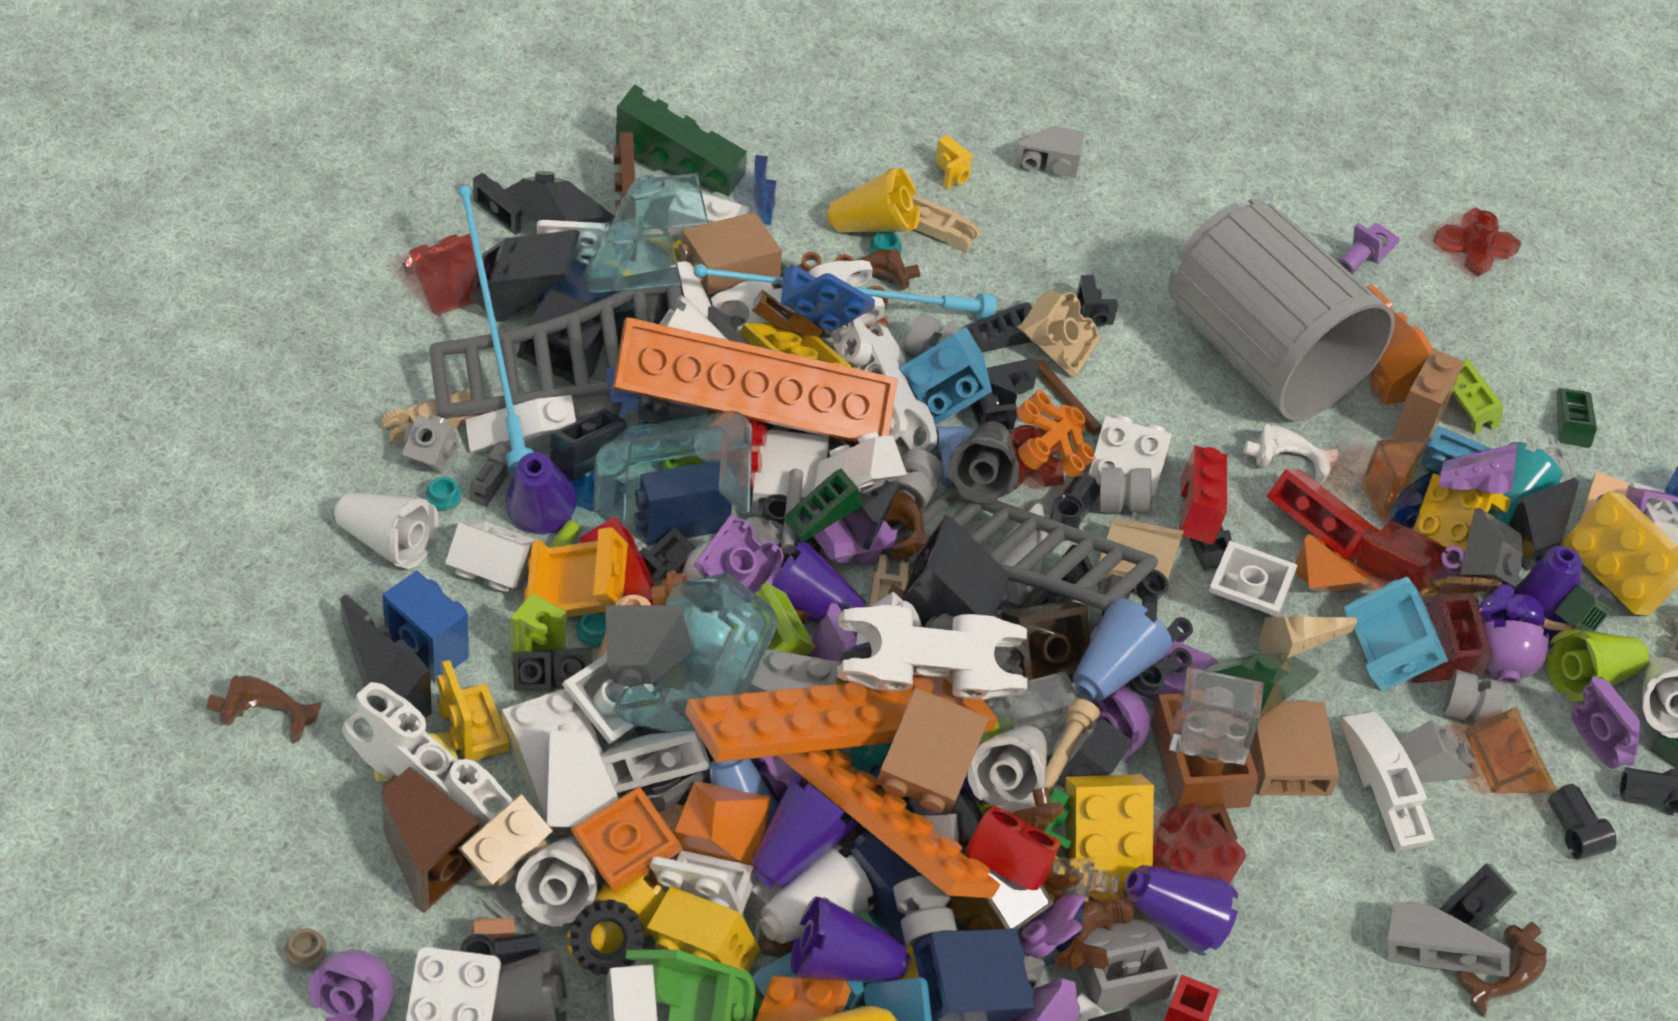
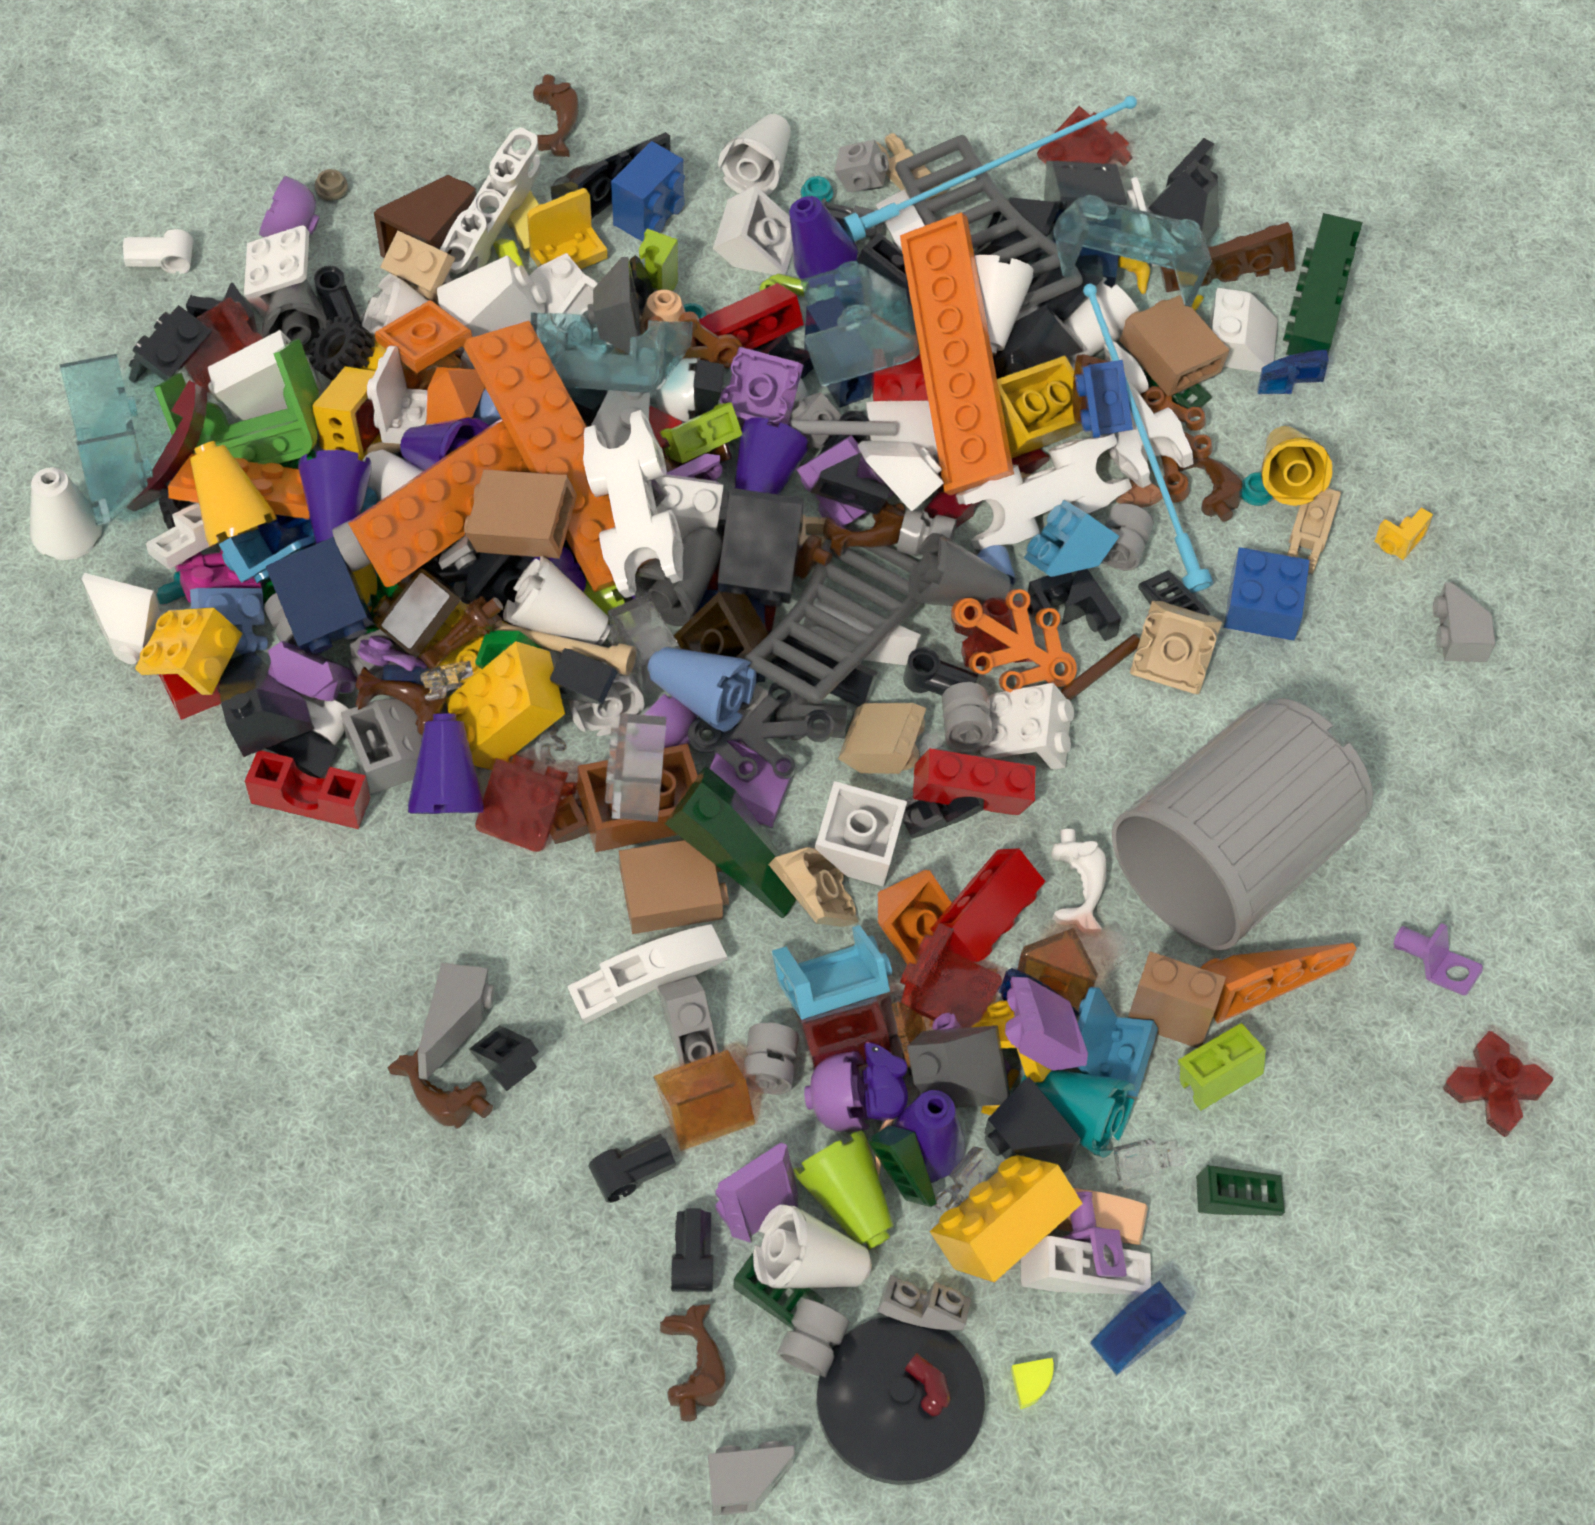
camera: 85 degrees right, 10 degrees up
(494, 927) = (357, 288): nougat tile -> none
(580, 575) = (728, 282): light orange panel -> none
(835, 488) = (833, 435): dark green slope -> none
(1008, 262) = (1266, 593): none -> blue brick
(1013, 848) = (419, 614): red piece -> none
(1092, 305) = (1237, 674): black bracket -> none

